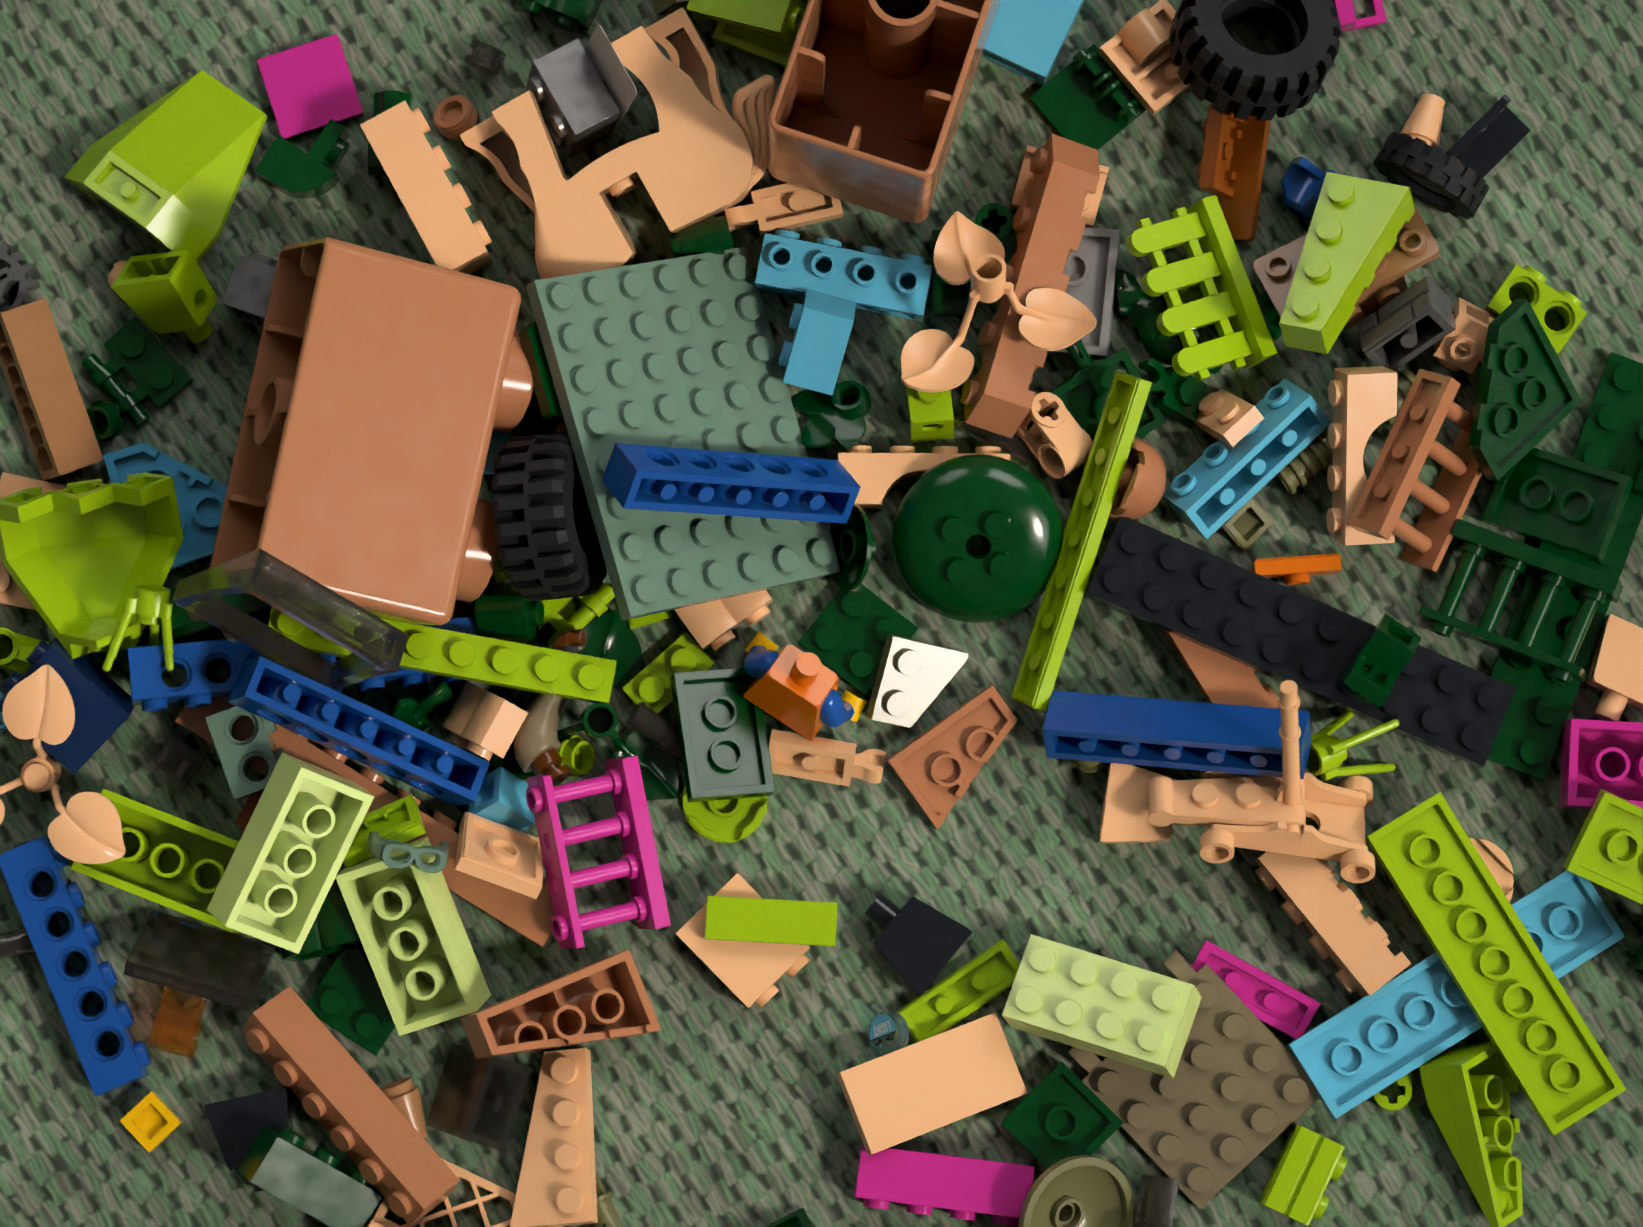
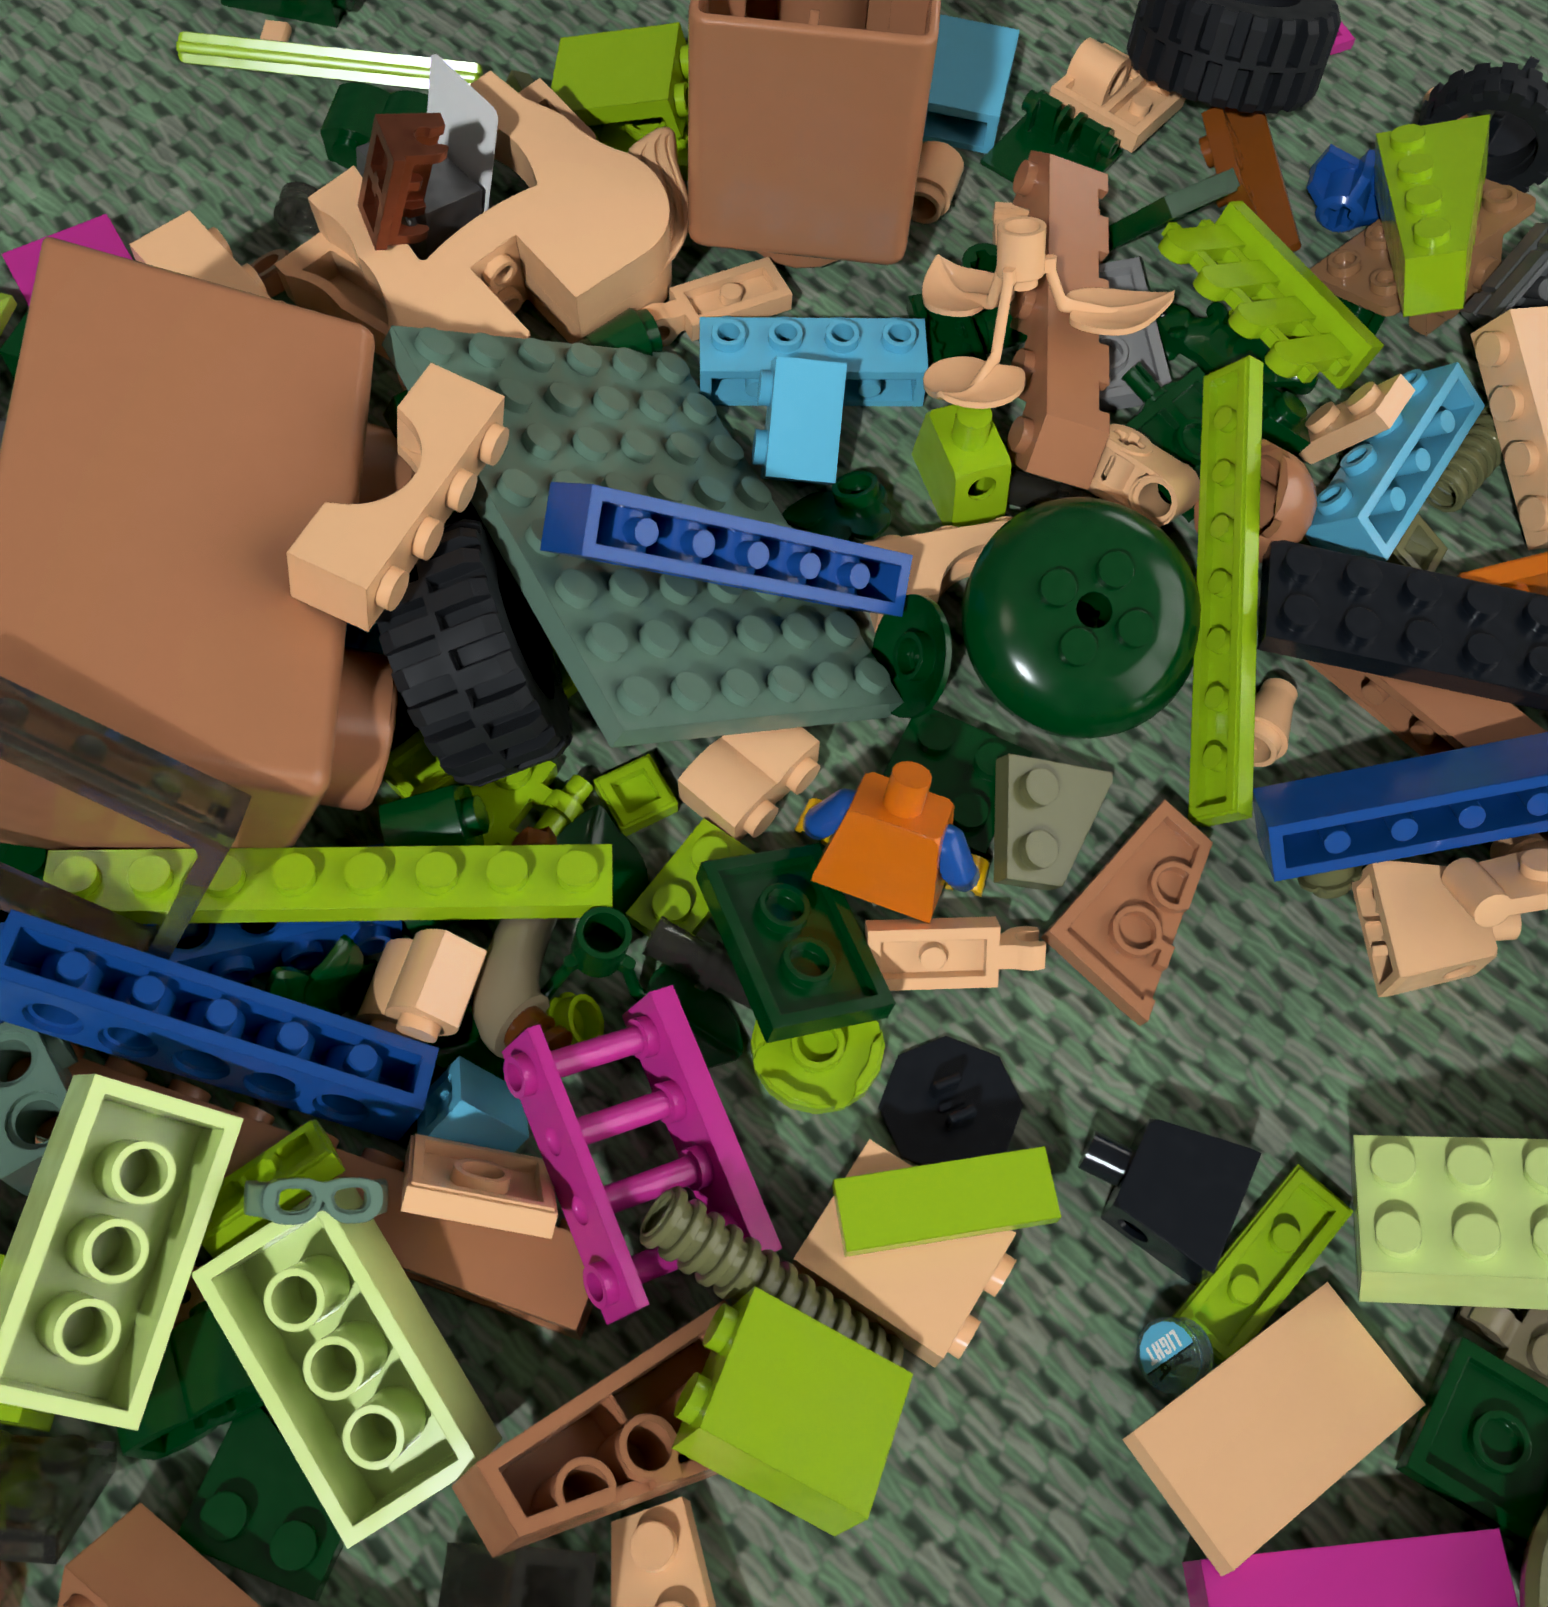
camera: 20 degrees left, 20 degrees down
(488, 483) = (361, 555): none -> light nougat arch
(553, 138) = (398, 175): none -> copper hinge
(651, 1019) = (792, 1411): none -> lime brick
(658, 951) = (738, 1265): none -> olive piece
(799, 855) = (949, 1103): none -> black piece
(981, 117) = (936, 181): none -> light nougat brick
(1088, 637) = (1273, 720): none -> light nougat cone
(1144, 202) = (1172, 208): none -> dark green tile

